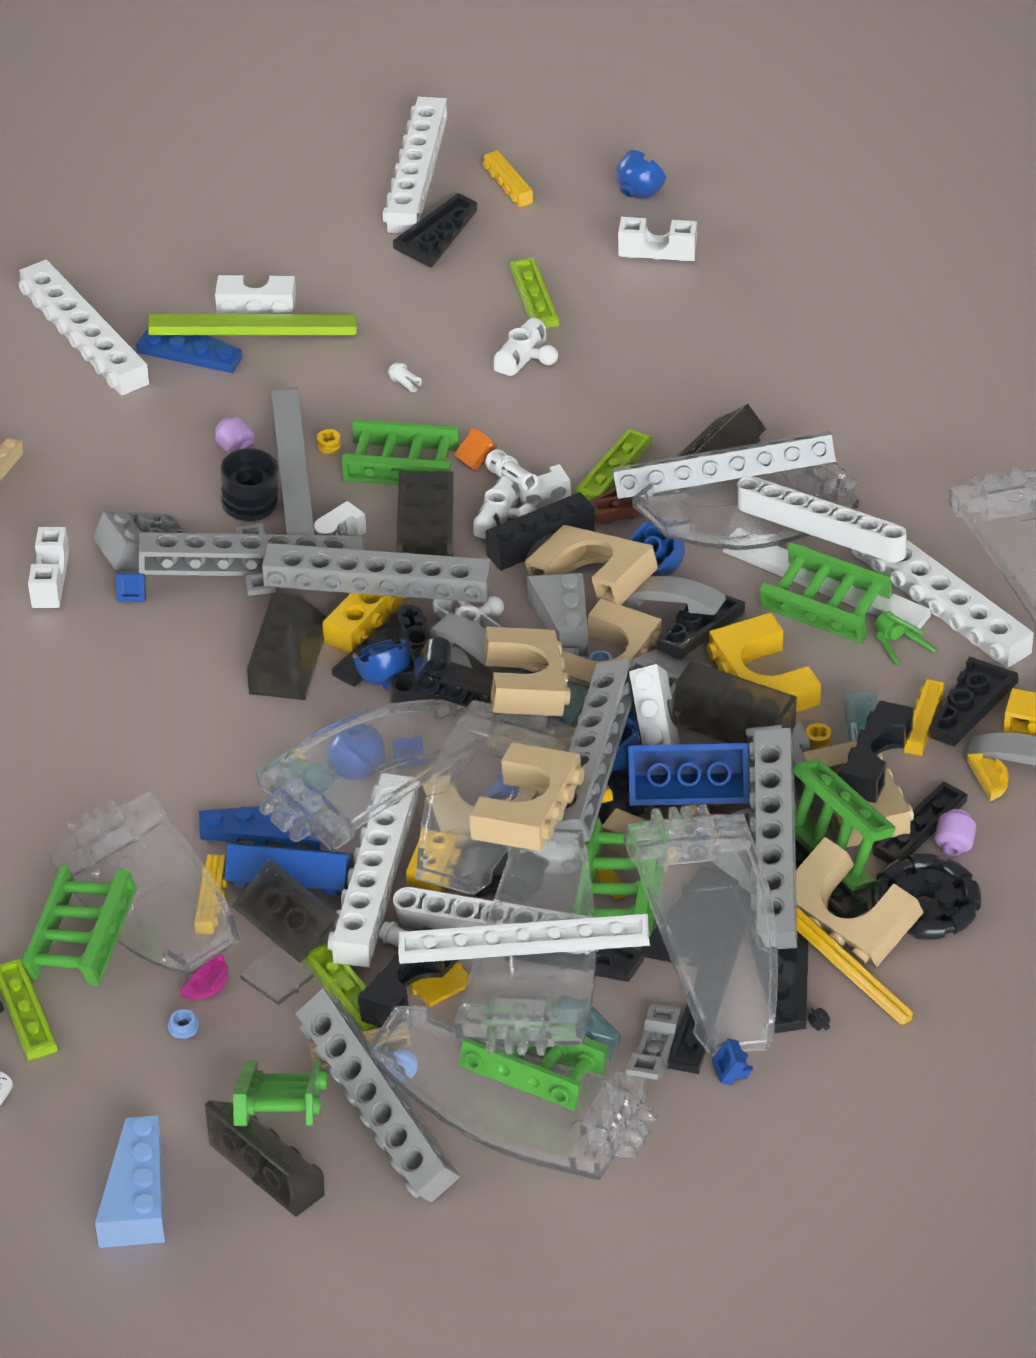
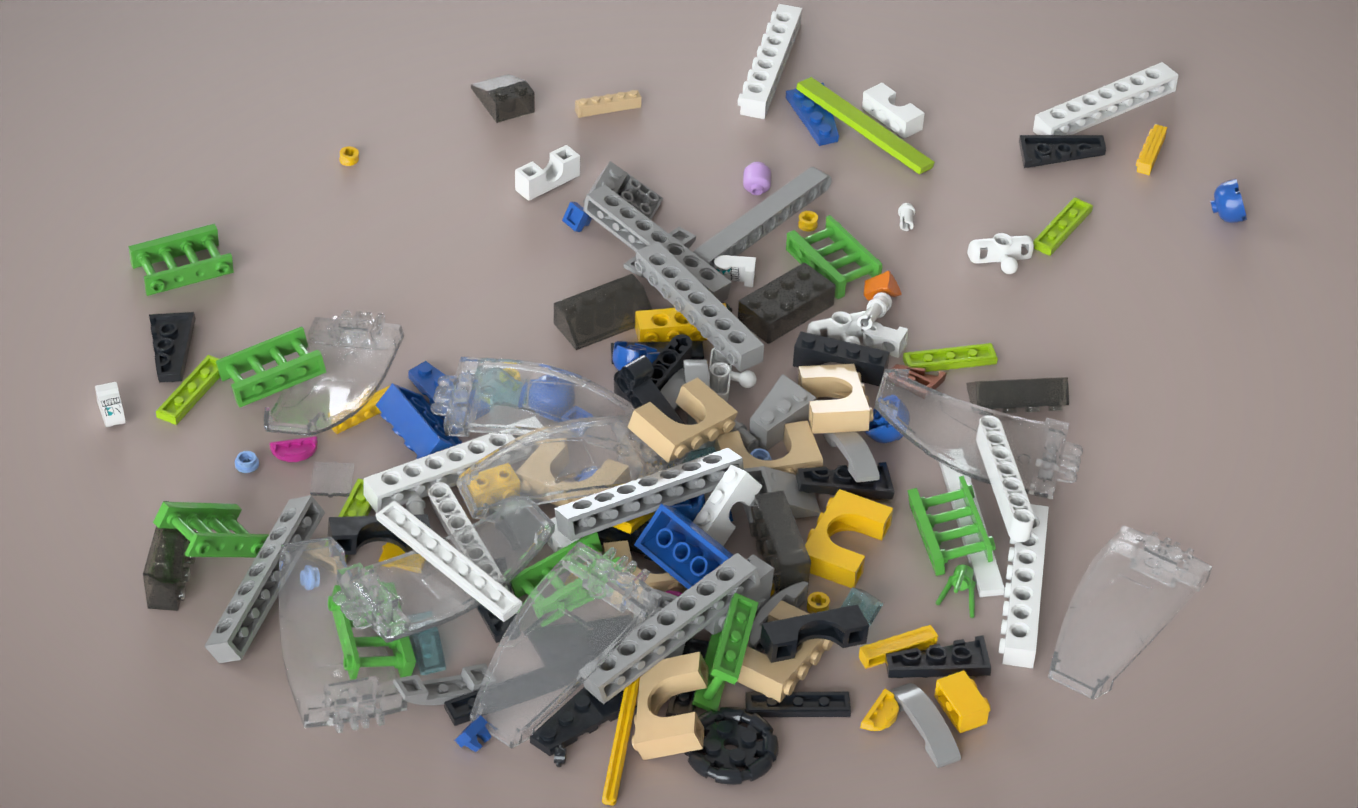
camera: 45 degrees right, 0 degrees up
(133, 1194) = (95, 519): light blue wedge -> none
(249, 484) = (715, 206): black wheel -> none
(285, 910) = (373, 441): clear smoke slope -> none
(532, 821) = (529, 495): tan arch -> none
(639, 242) = (1169, 239): white arch -> none
(725, 464) = (991, 400): brick -> none
(955, 832) = (803, 724): lavender head -> none

